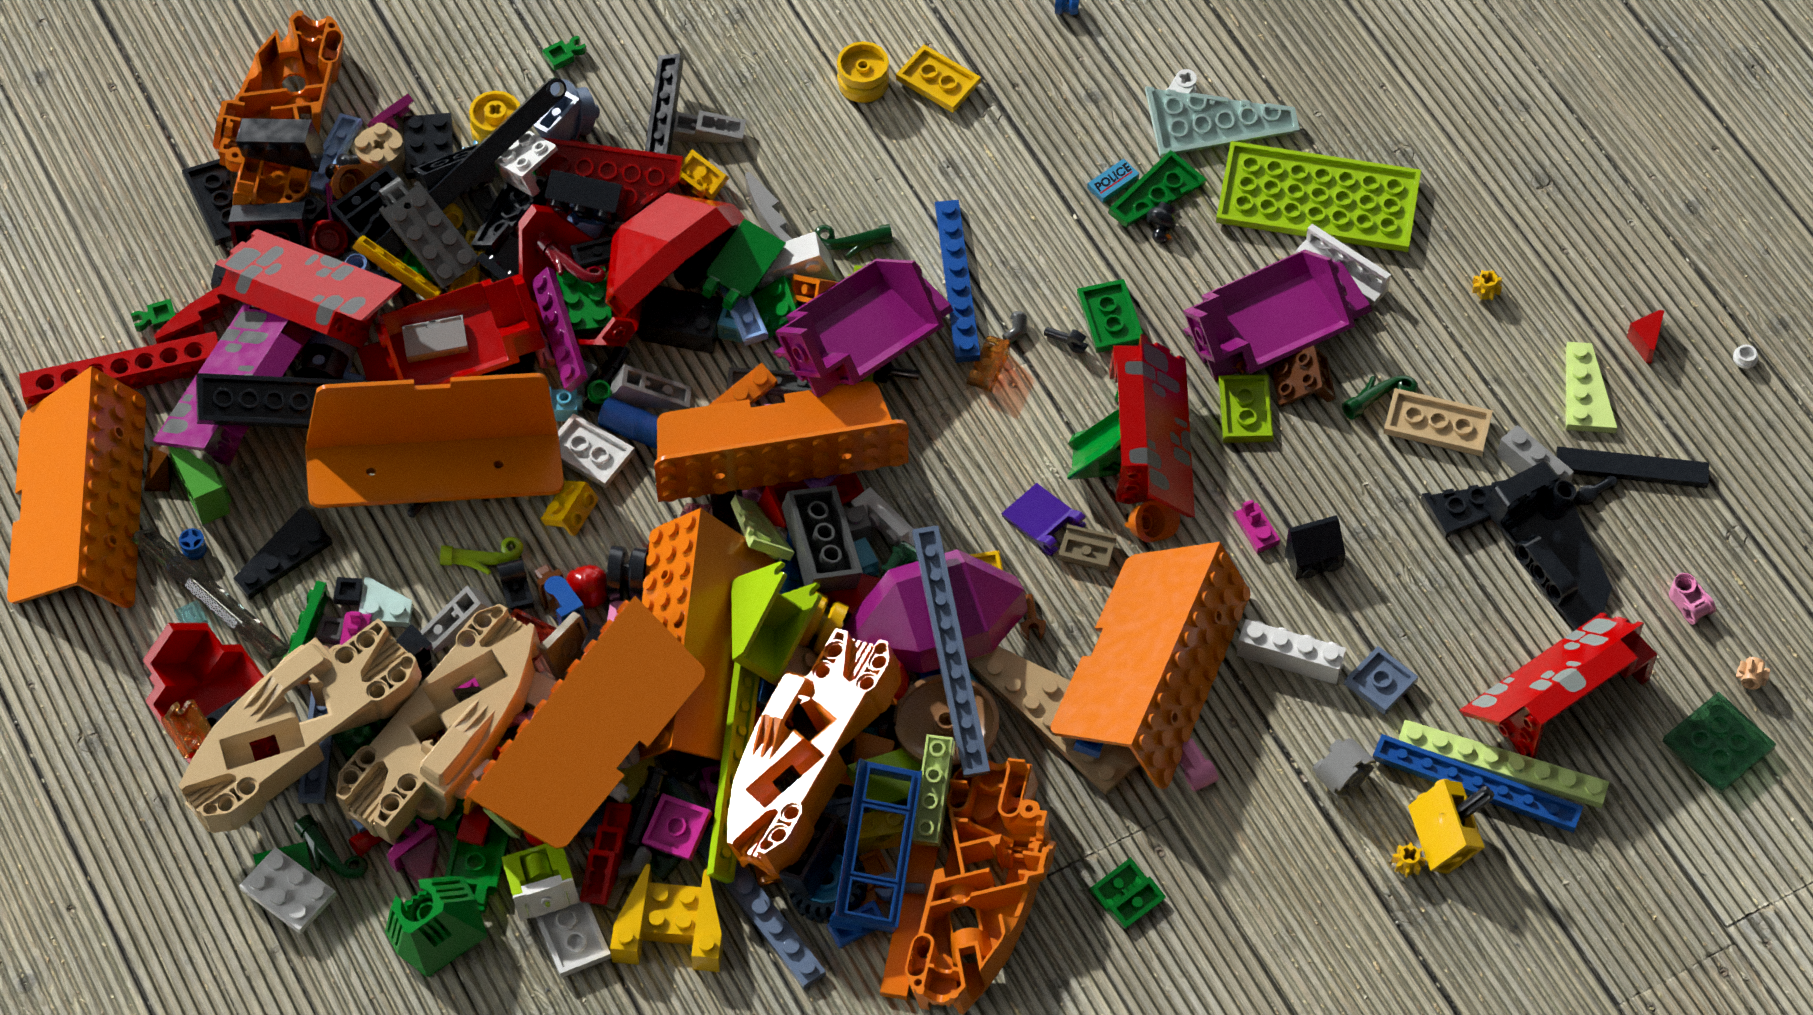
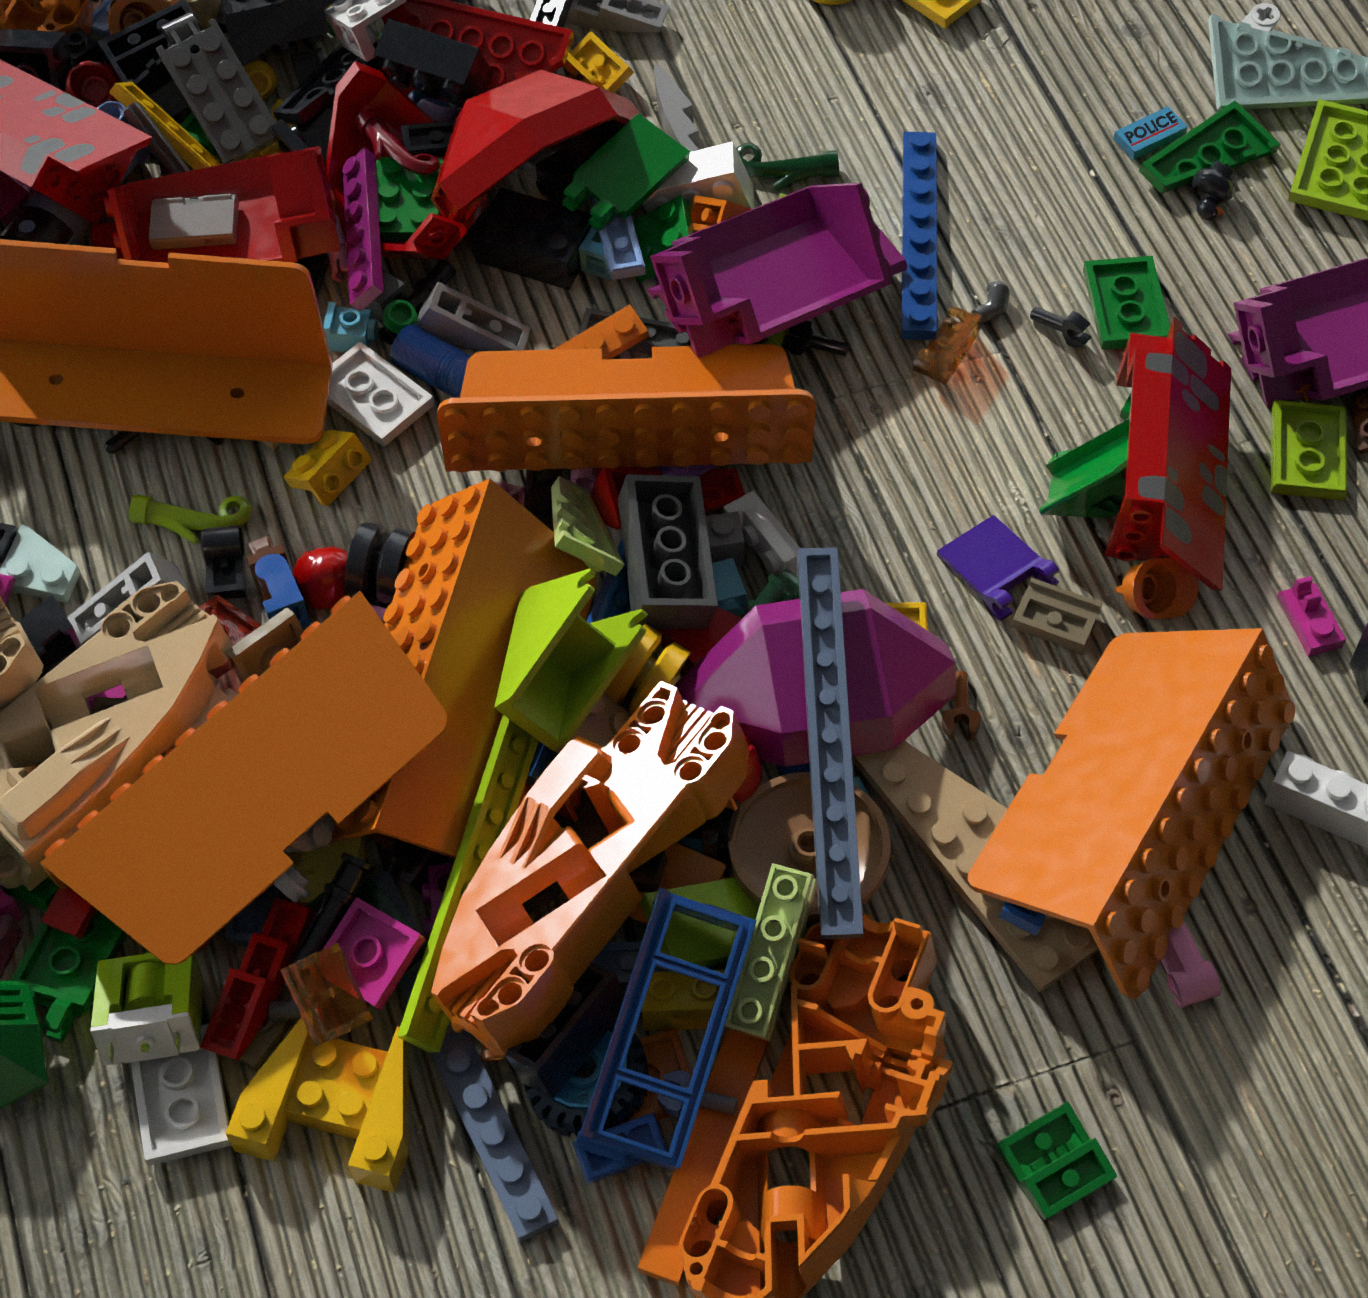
camera: 10 degrees right, 0 degrees up
(382, 269) = (158, 144): none -> dark grey axle
(656, 855) = (326, 994): none -> clear orange hinge

